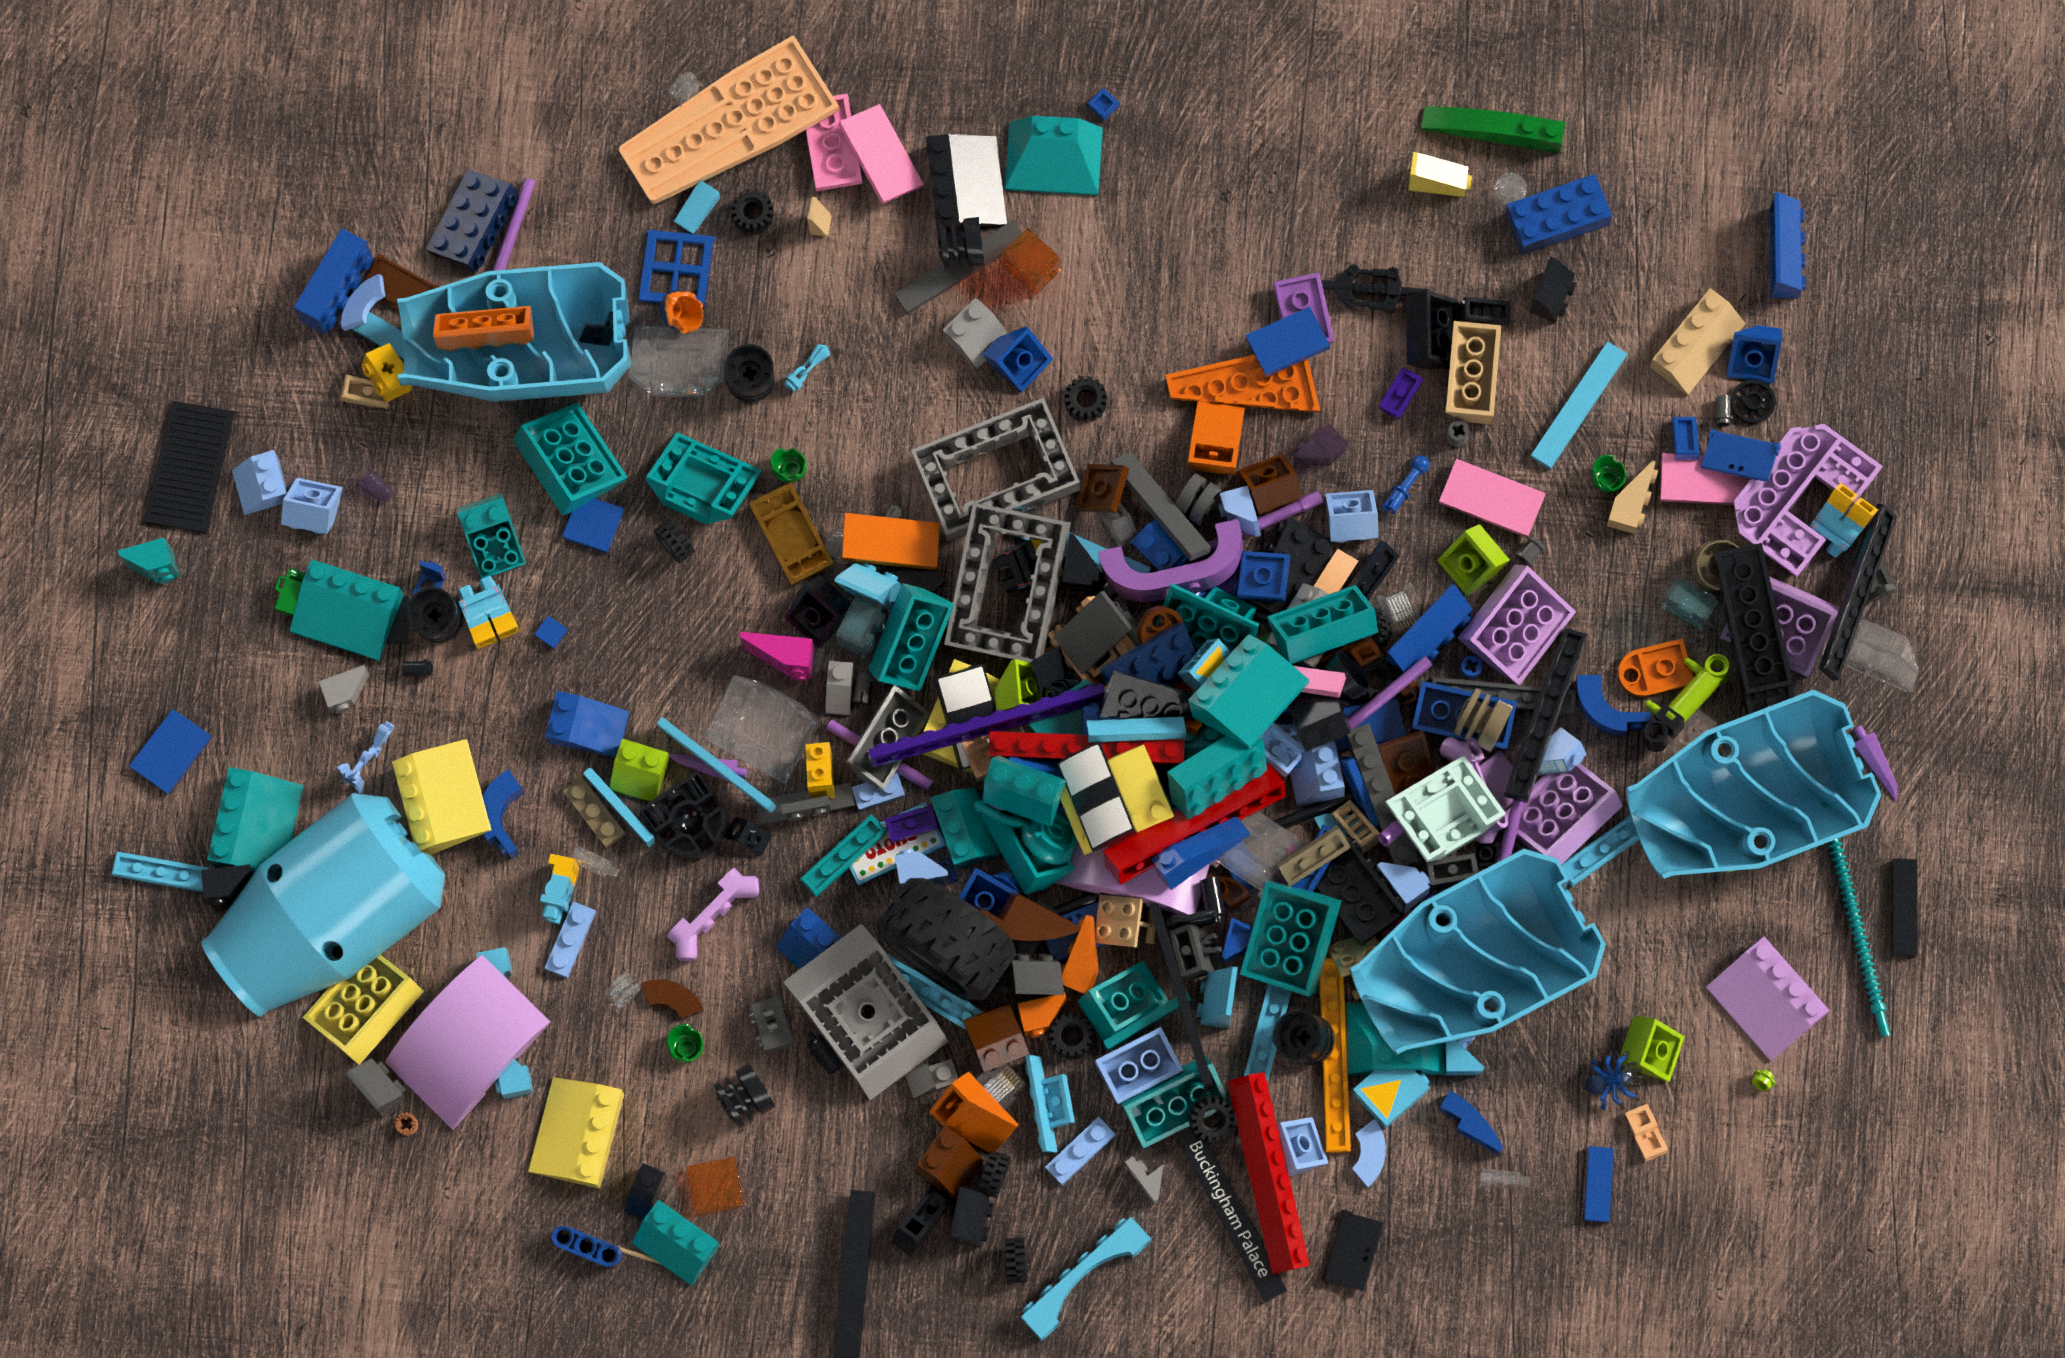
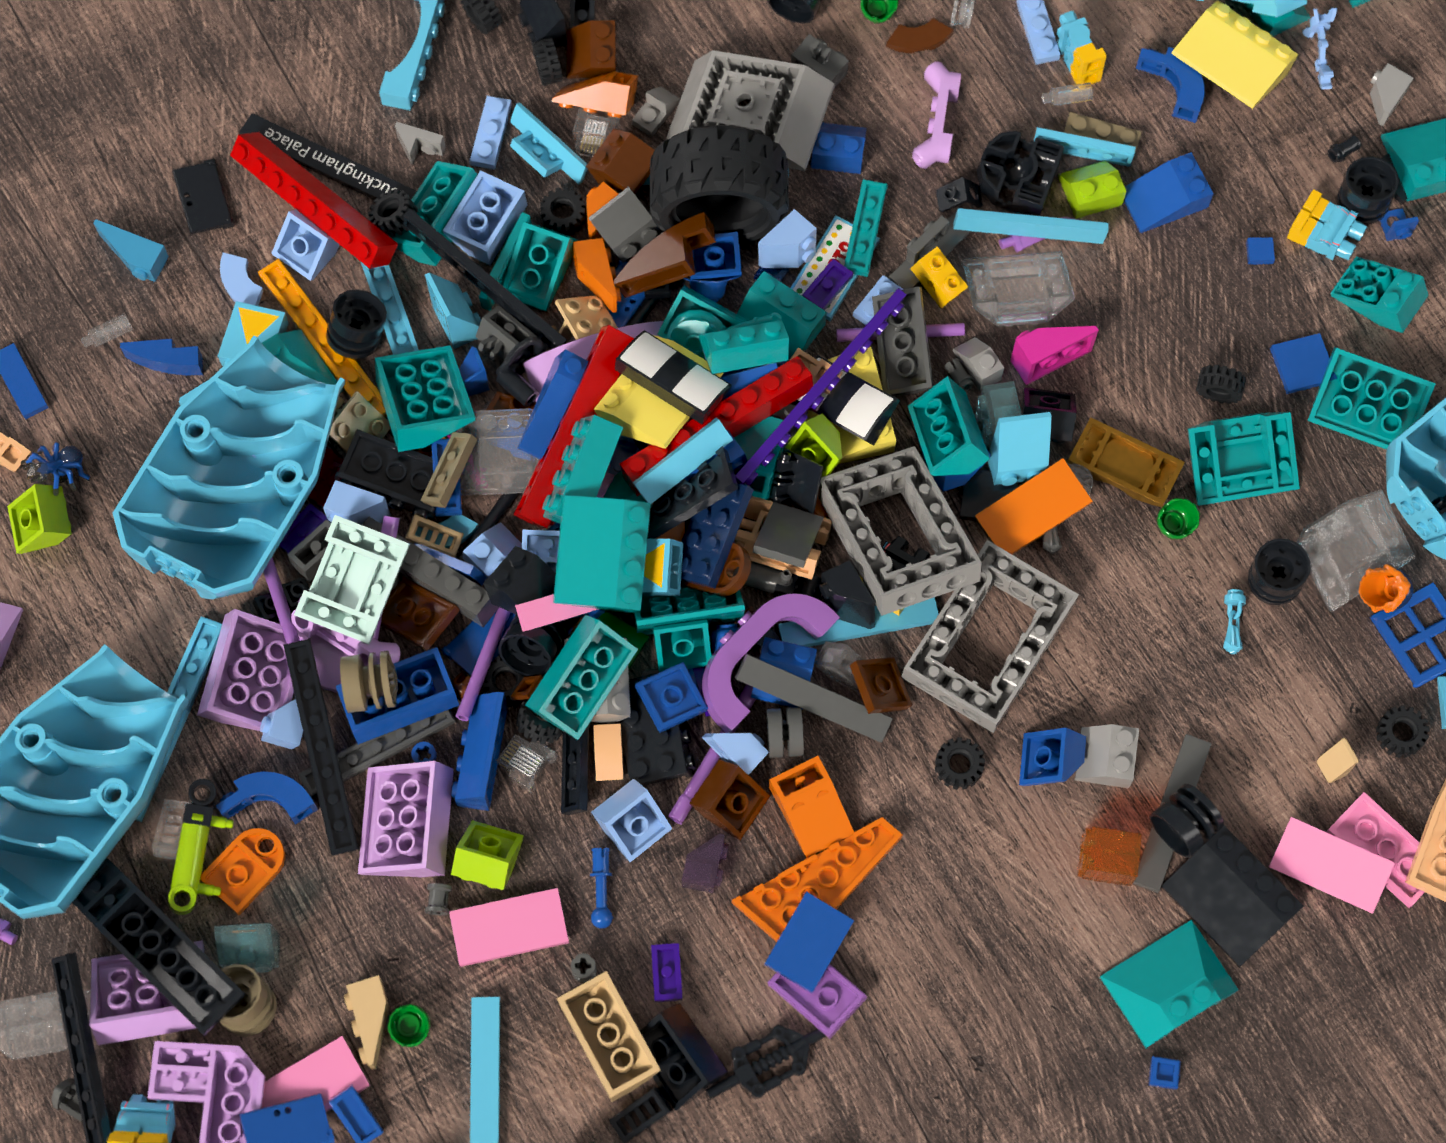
camera: 140 degrees right, 5 degrees down
(1438, 1231) = (139, 254): none -> dark azure slope

